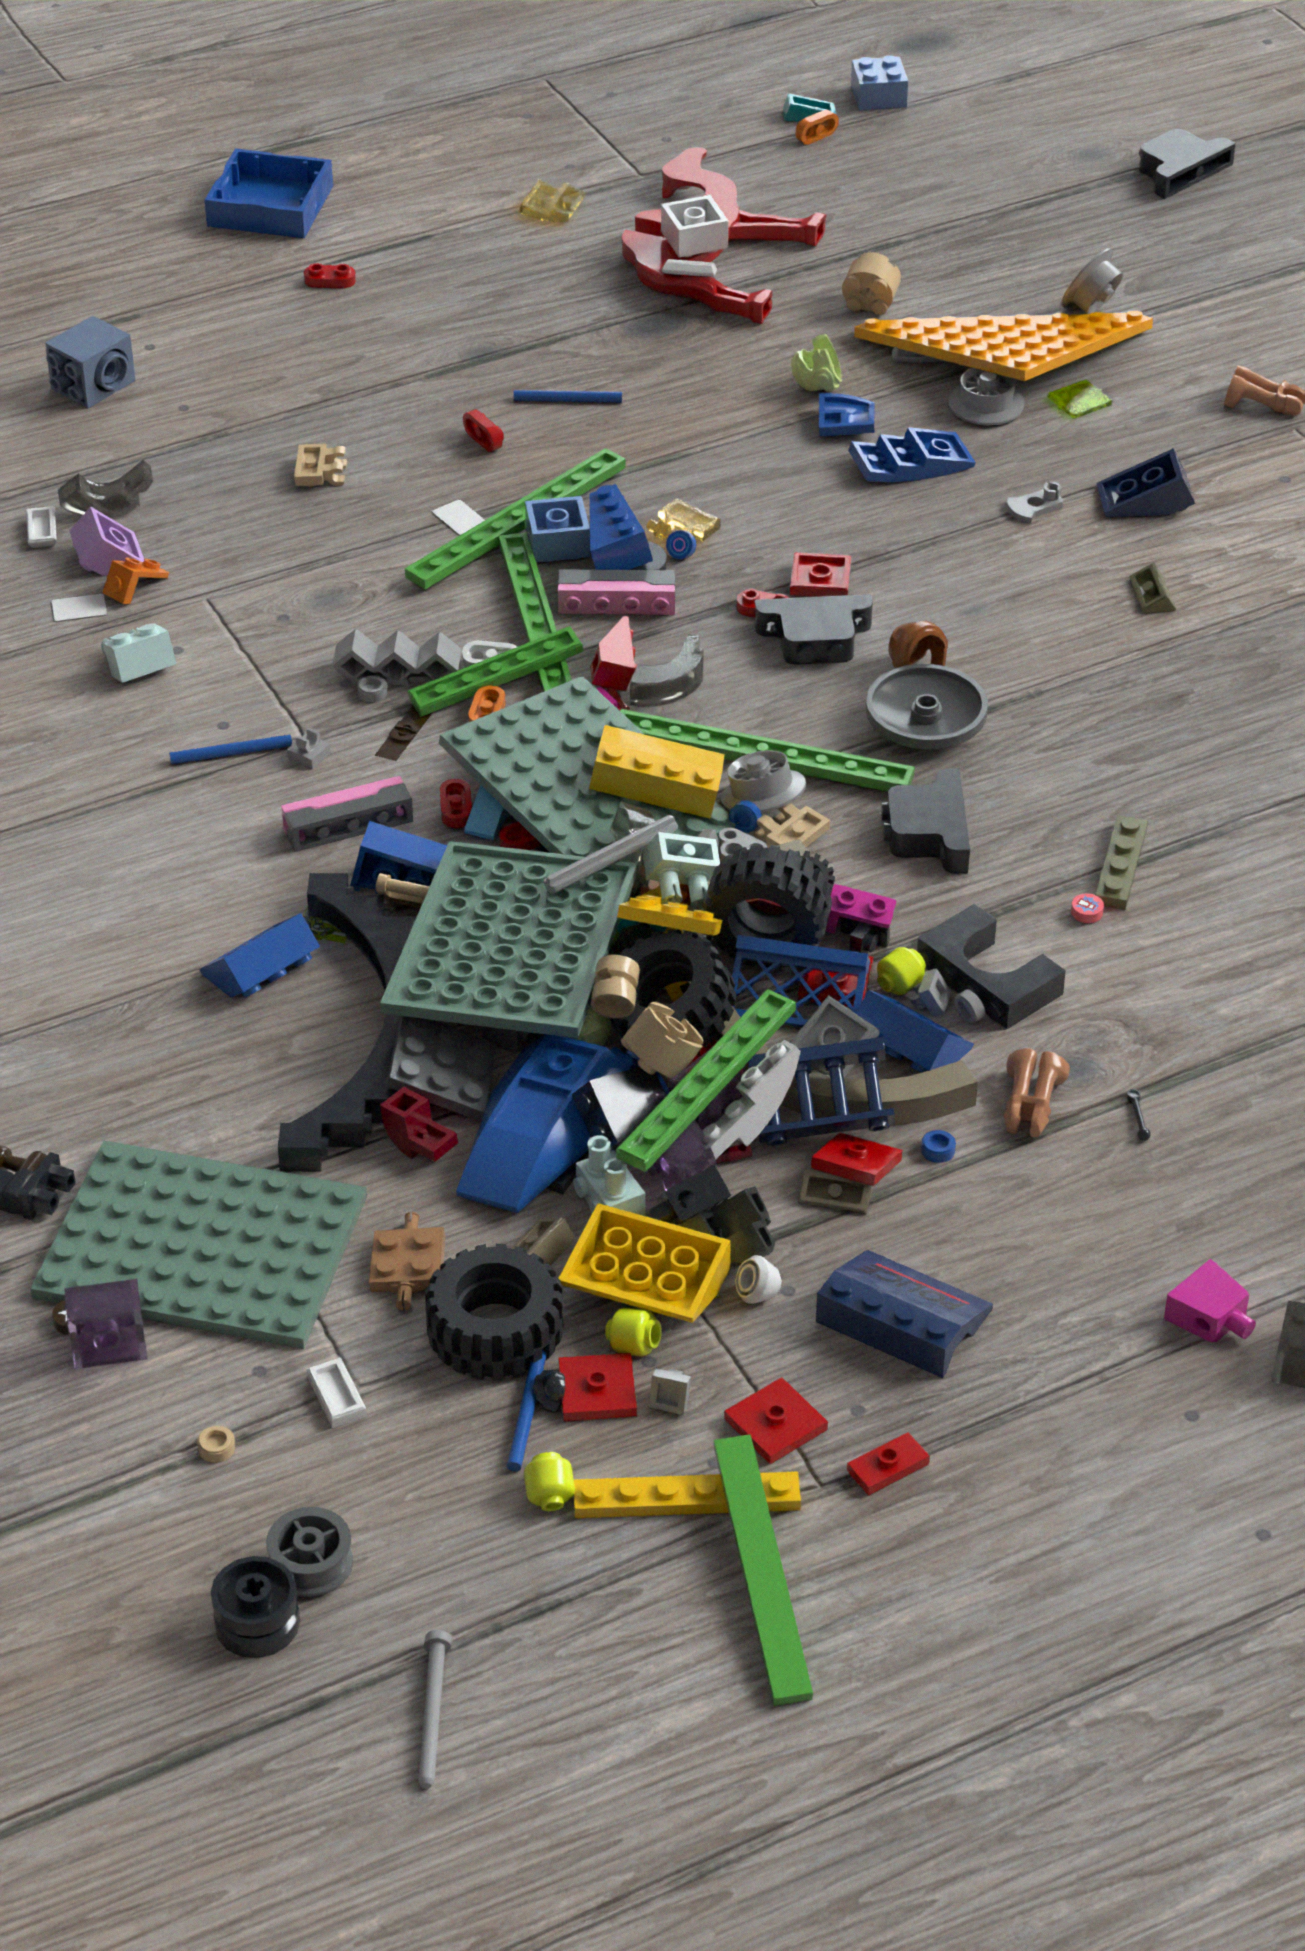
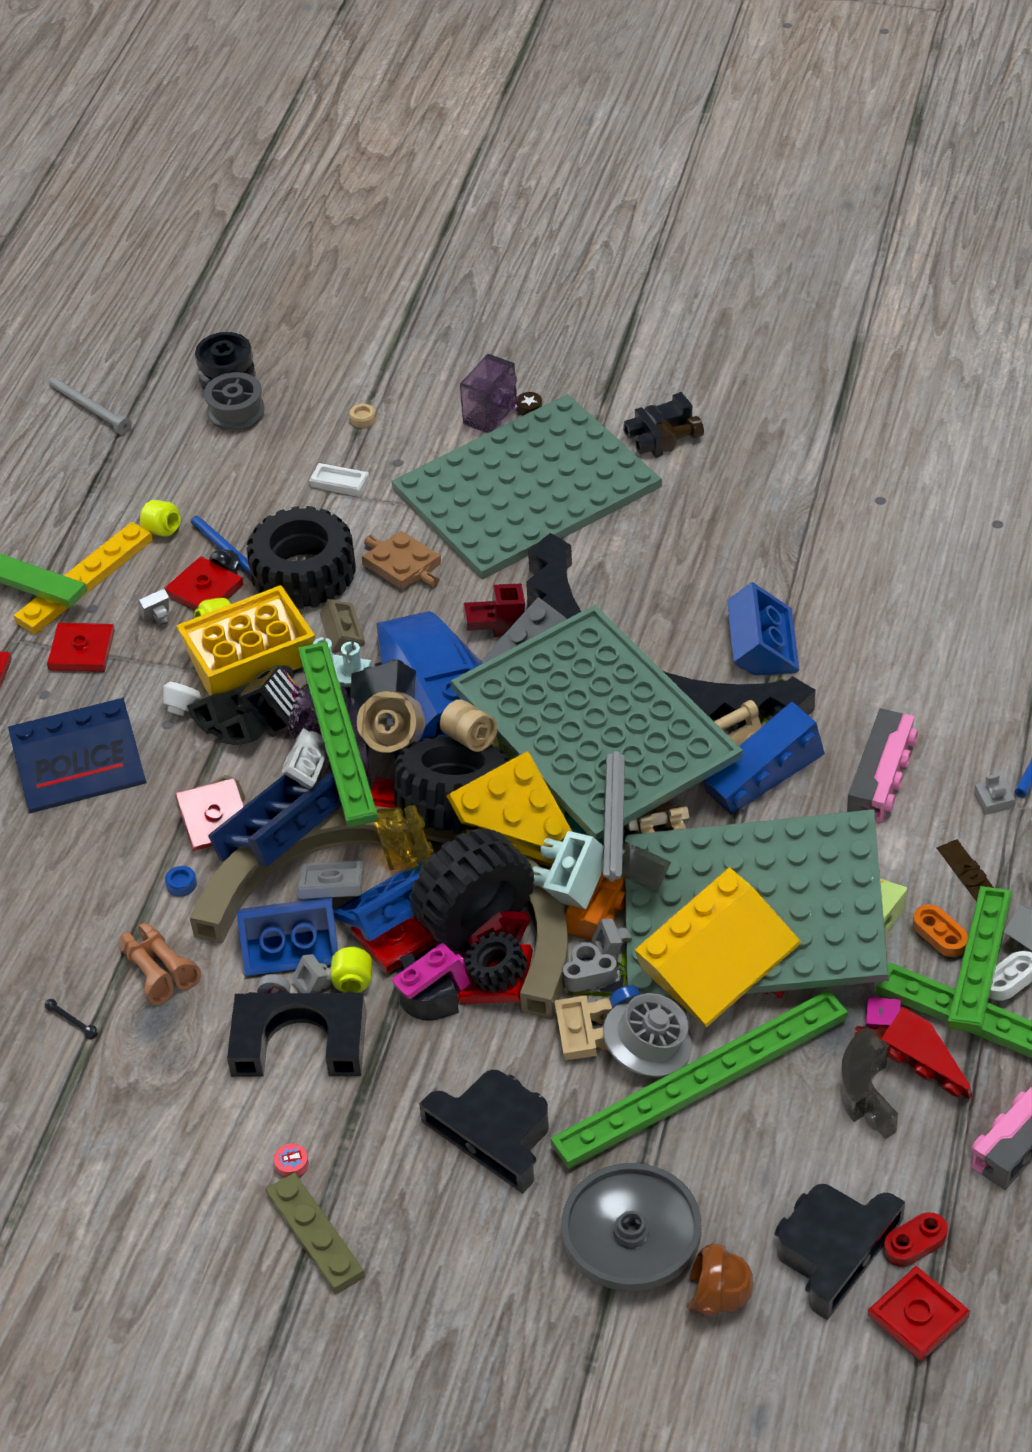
camera: 135 degrees right, 5 degrees up
(750, 988) = (396, 840): none -> clear yellow plate

